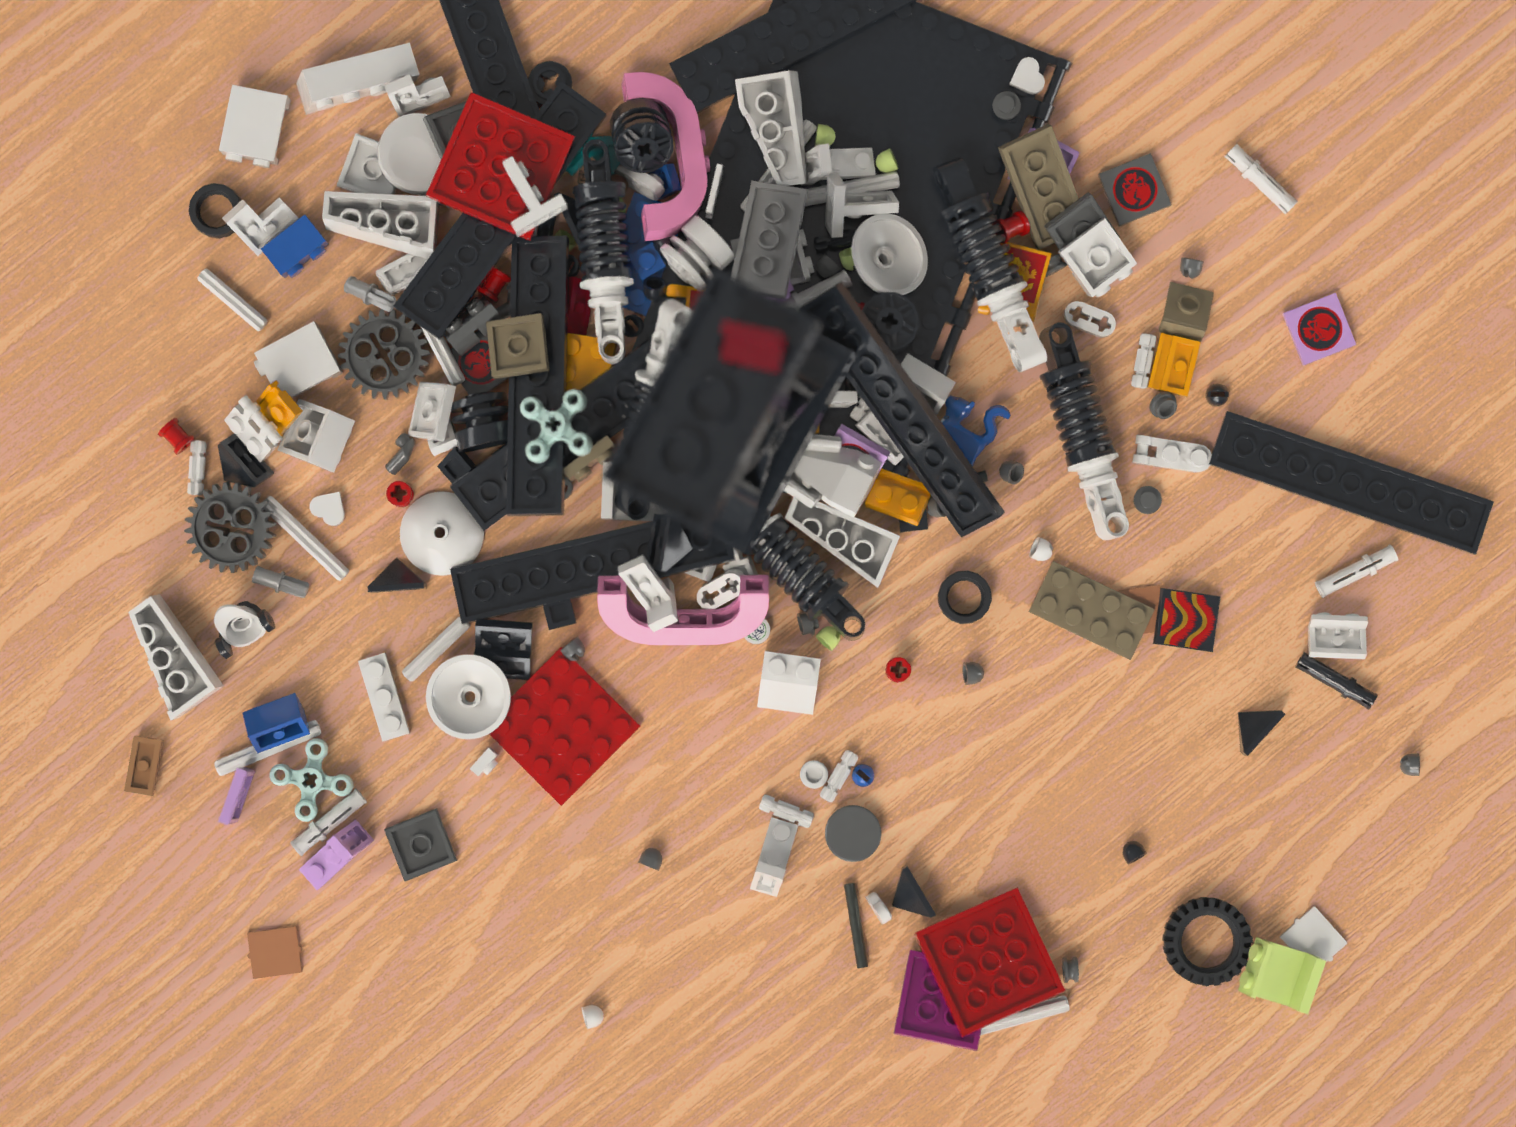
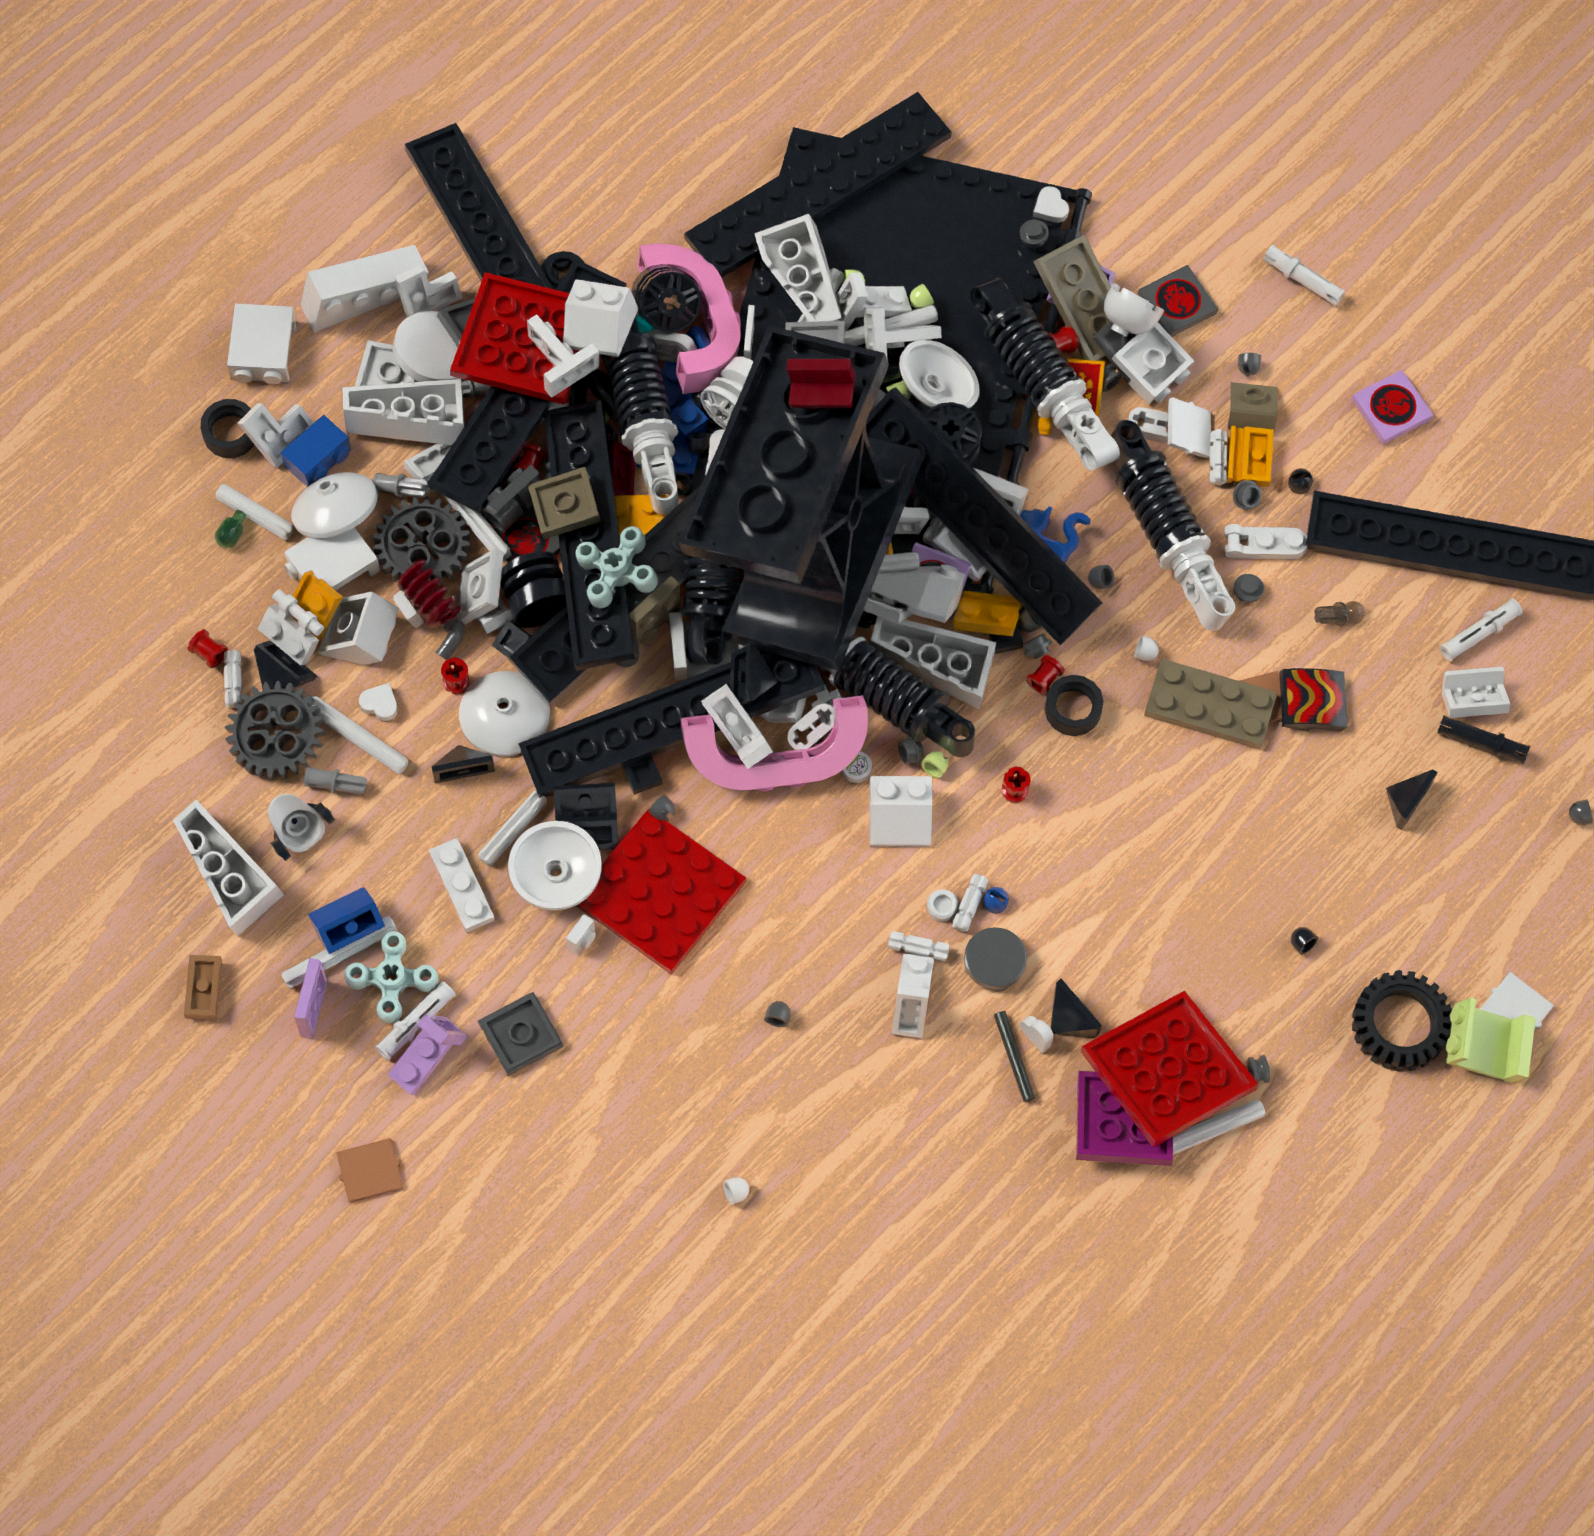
camera: 15 degrees left, 20 degrees down
(207, 317) = (230, 530): none -> clear green cylinder
(312, 316) = (334, 505): none -> white dish
(364, 421) = (407, 609): none -> white tile
(381, 417) = (426, 596): none -> dark red piece
(570, 165) = (598, 316): none -> white slope
(940, 534) = (1037, 646): none -> dark grey plate
(943, 564) = (1045, 674): none -> red bush
(972, 673) = (1095, 779): dark grey hinge -> none
(1083, 212) = (1130, 311): none -> white cylinder
(1120, 329) = (1189, 428): none -> white piece
(1227, 537) = (1340, 613): none -> clear smoke axle

